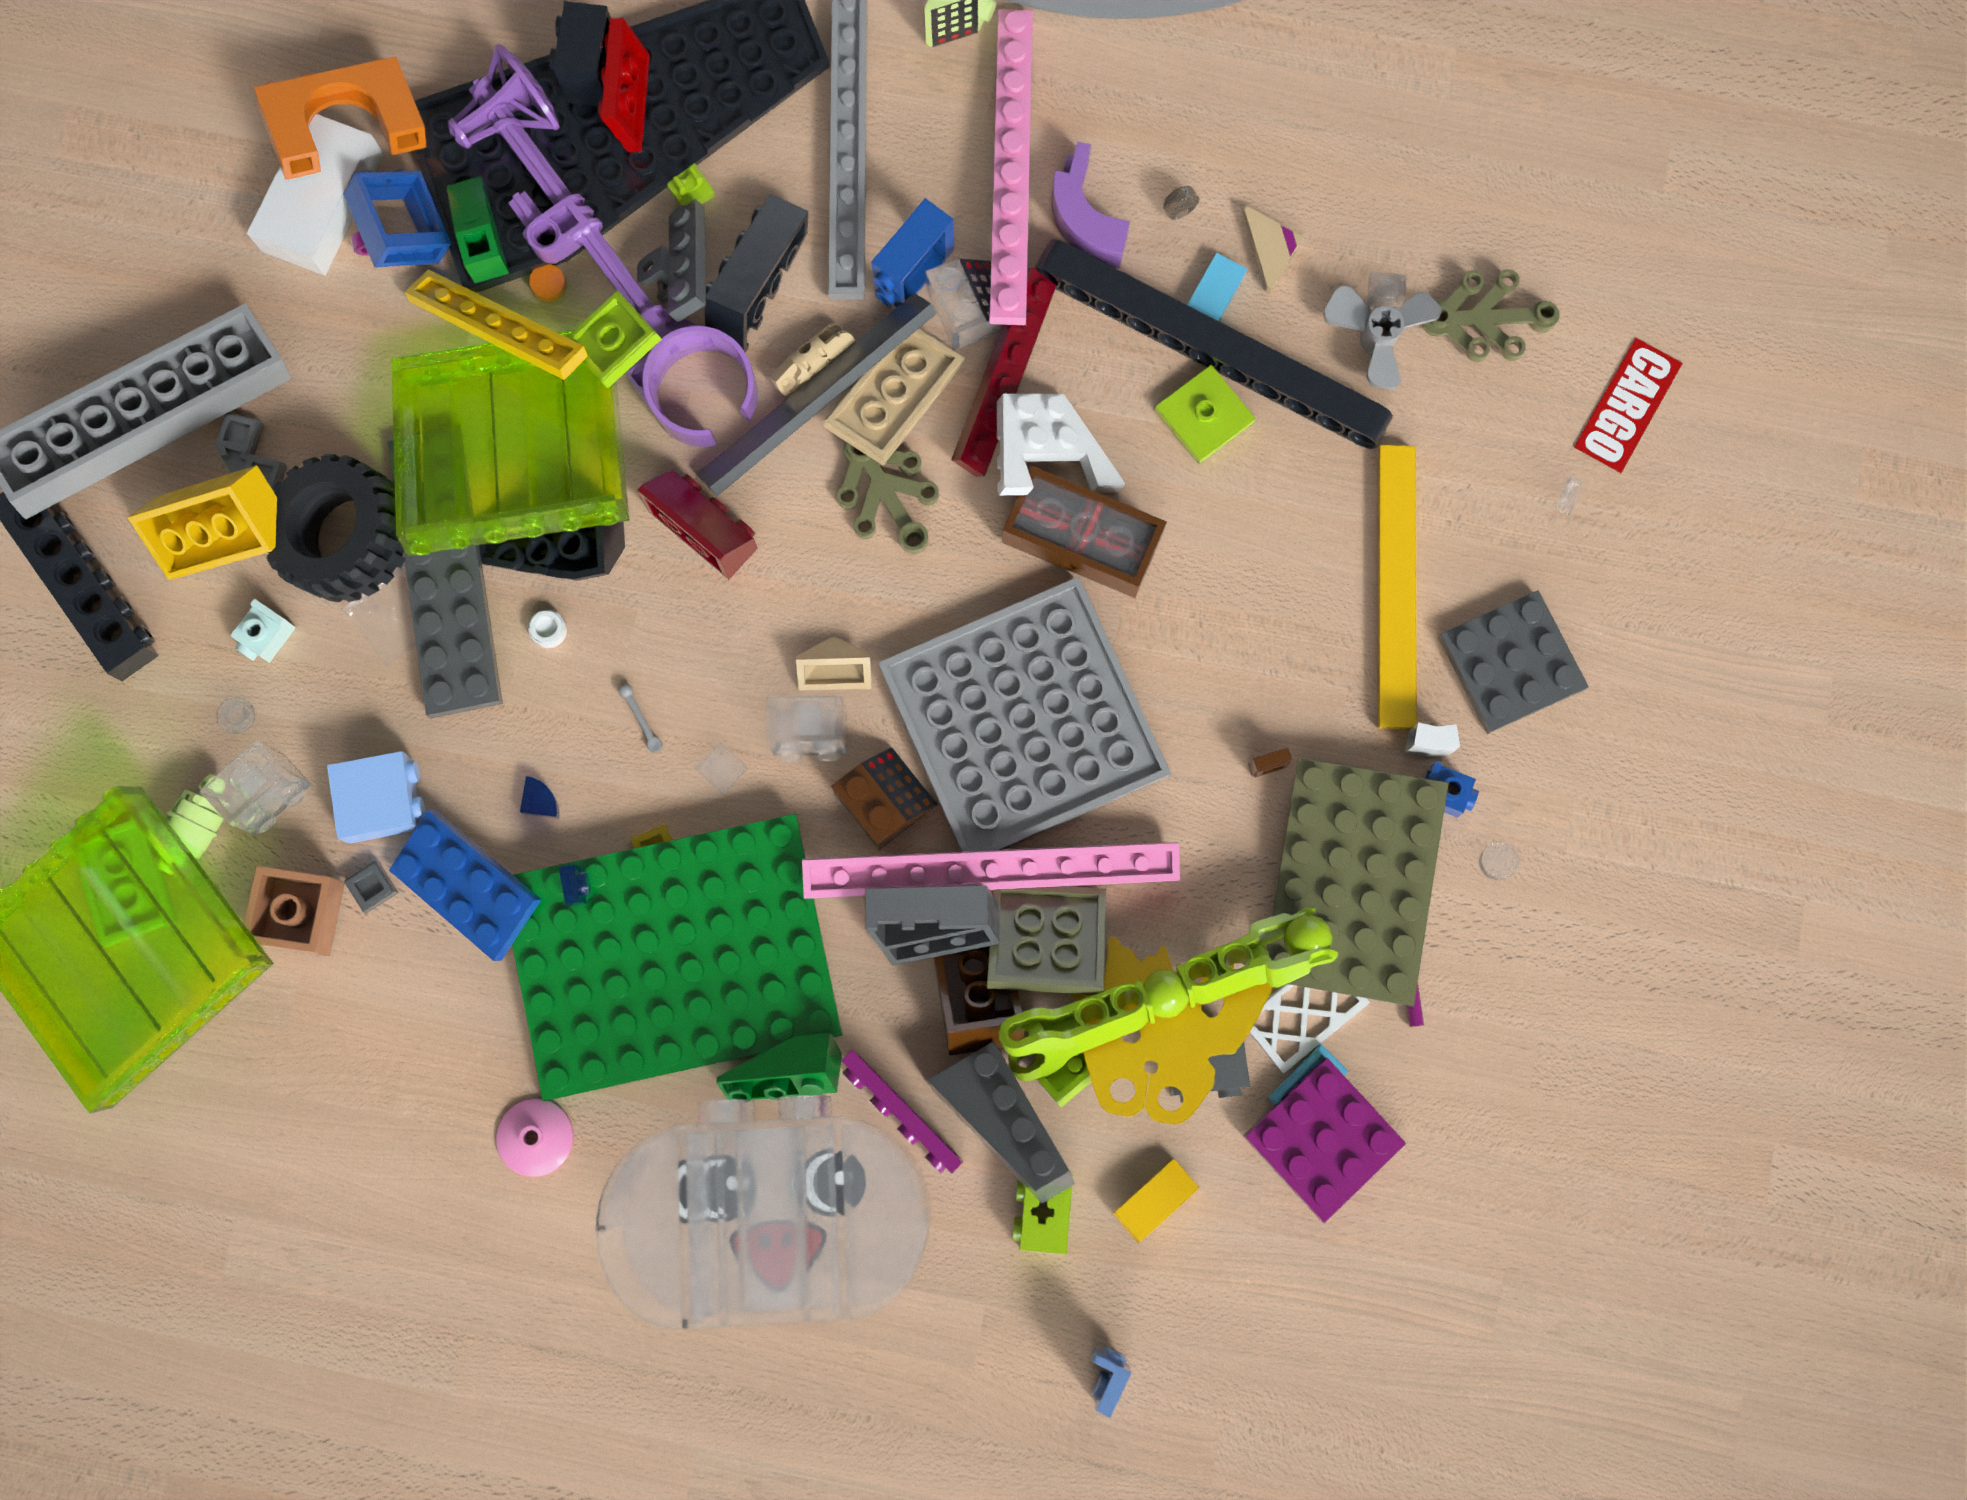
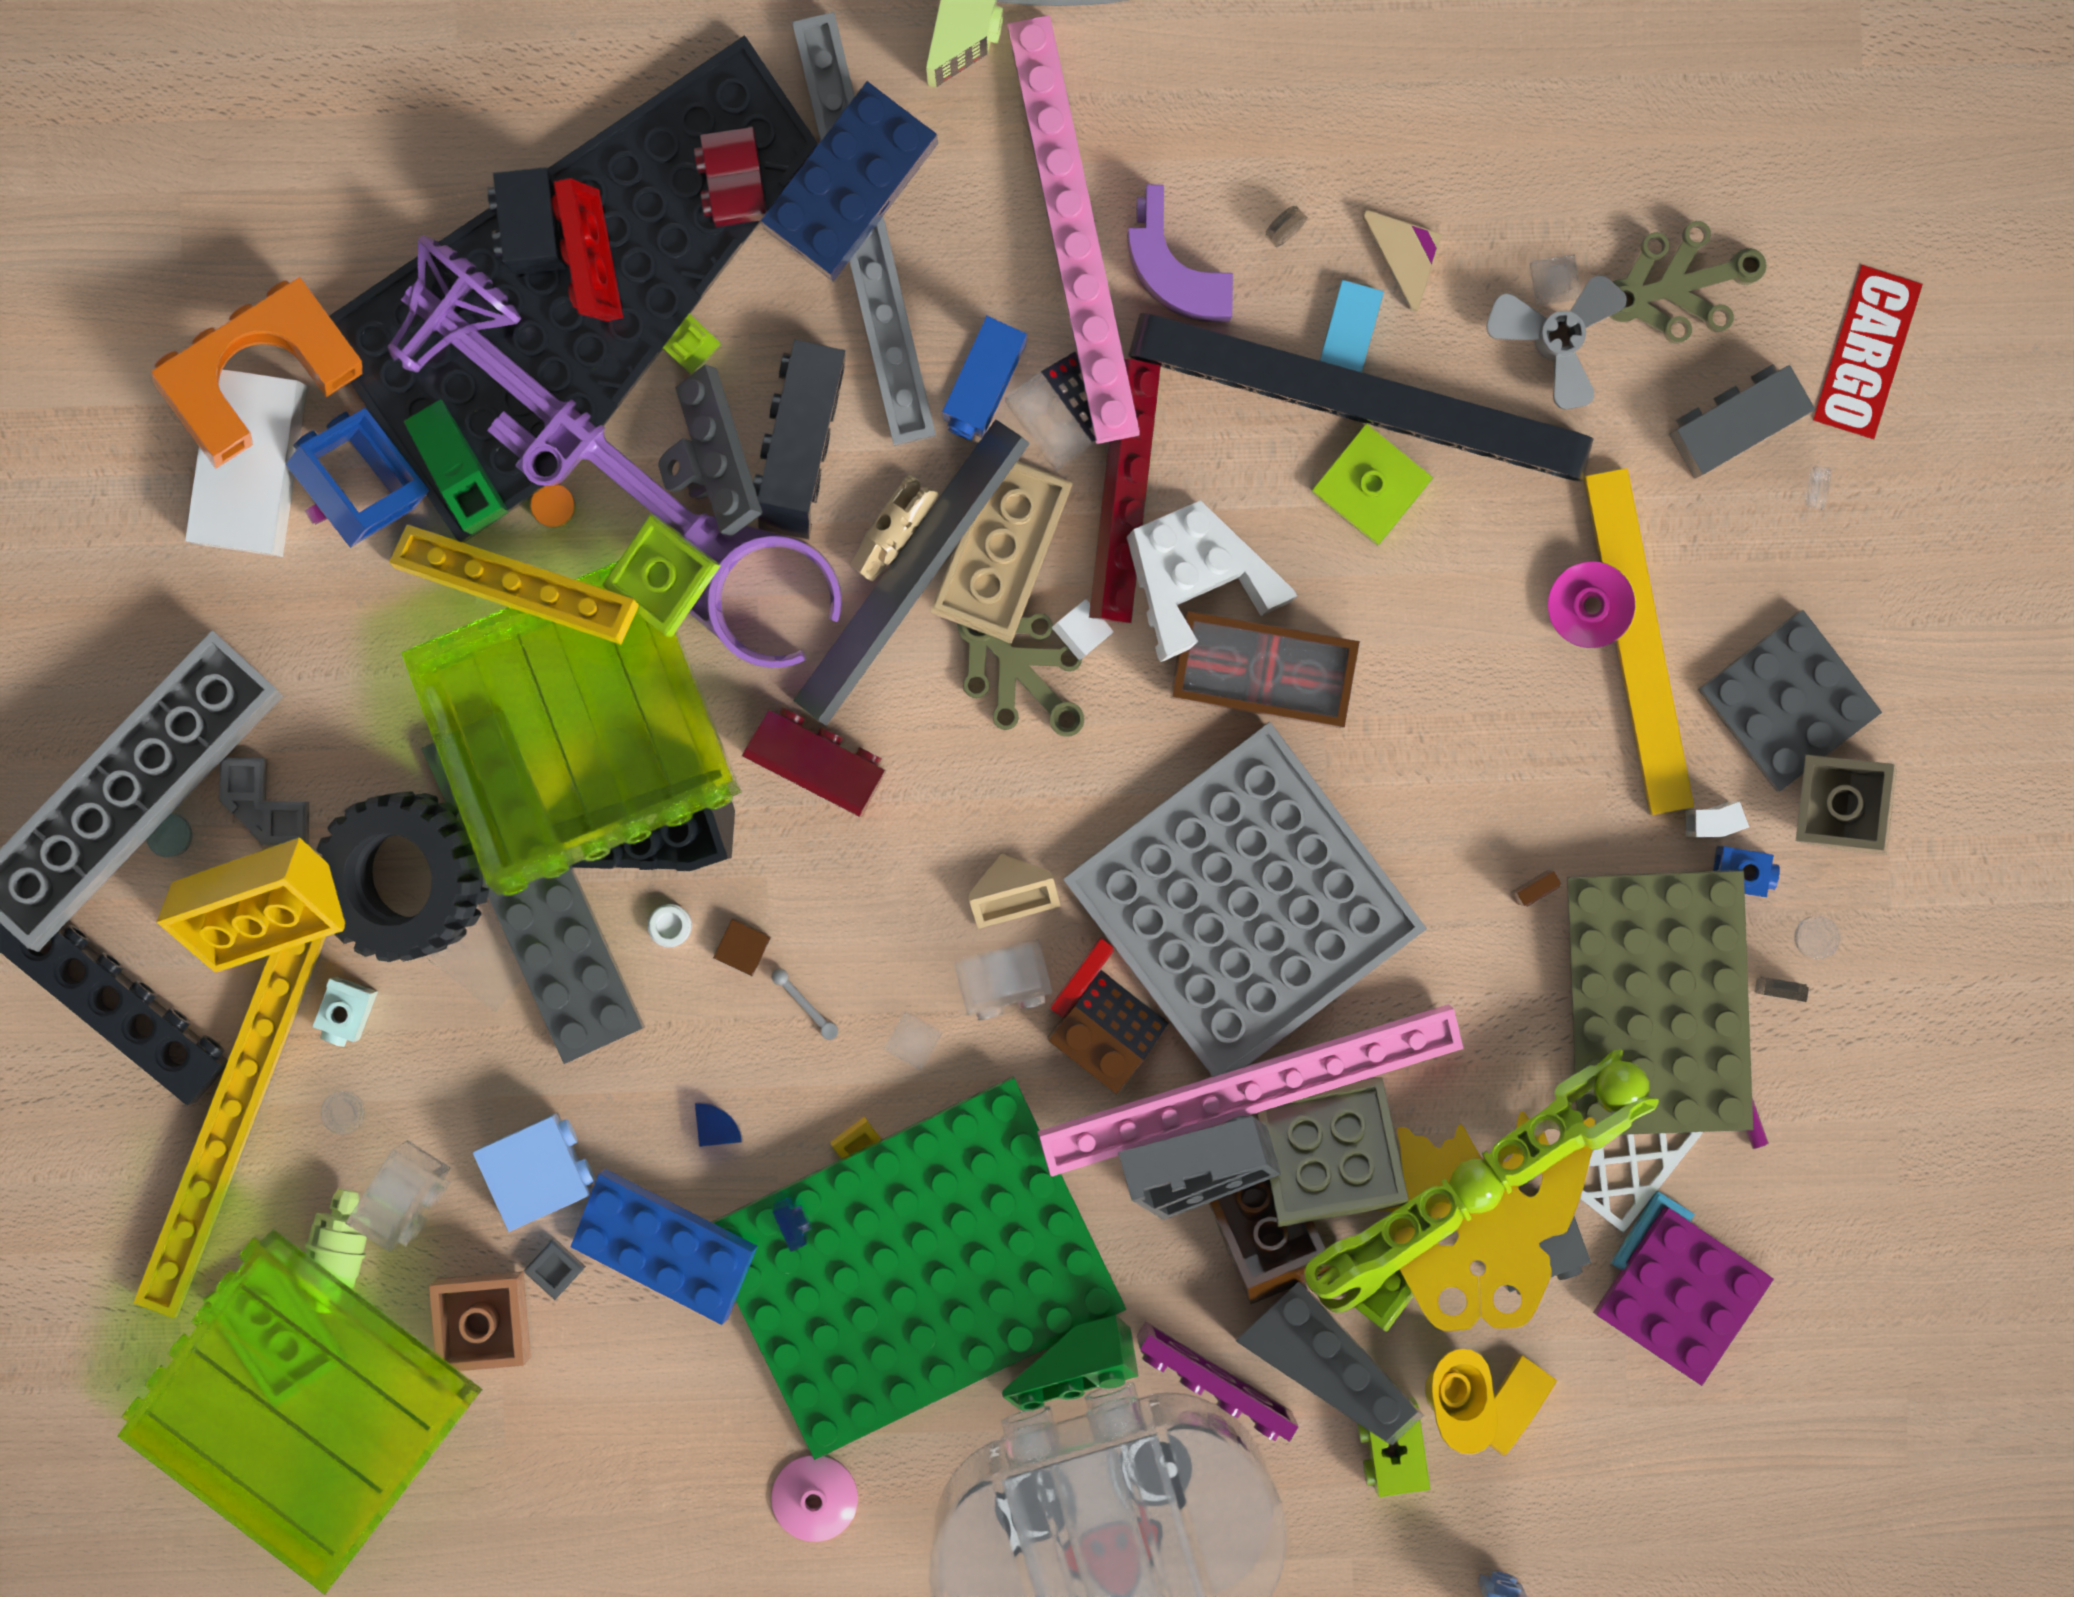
camera: 10 degrees left, 10 degrees up
(140, 700) = (226, 1128): none -> yellow plate
(167, 464) = (171, 837): none -> clear light blue tile
(601, 659) = (742, 947): none -> reddish brown tile
(754, 64) = (732, 177): none -> dark red brick
(844, 85) = (850, 181): none -> dark blue brick
(875, 744) = (1082, 977): none -> red tile
(943, 472) = (1081, 632): none -> white tile
(1113, 1182) = (1463, 1401): none -> yellow piece
(1361, 528) = (1569, 598): none -> dark pink dish
(1461, 894) = (1782, 988): none -> clear smoke tile
(1516, 429) = (1740, 419): none -> dark grey brick
(1546, 752) = (1846, 804): none -> dark tan slope

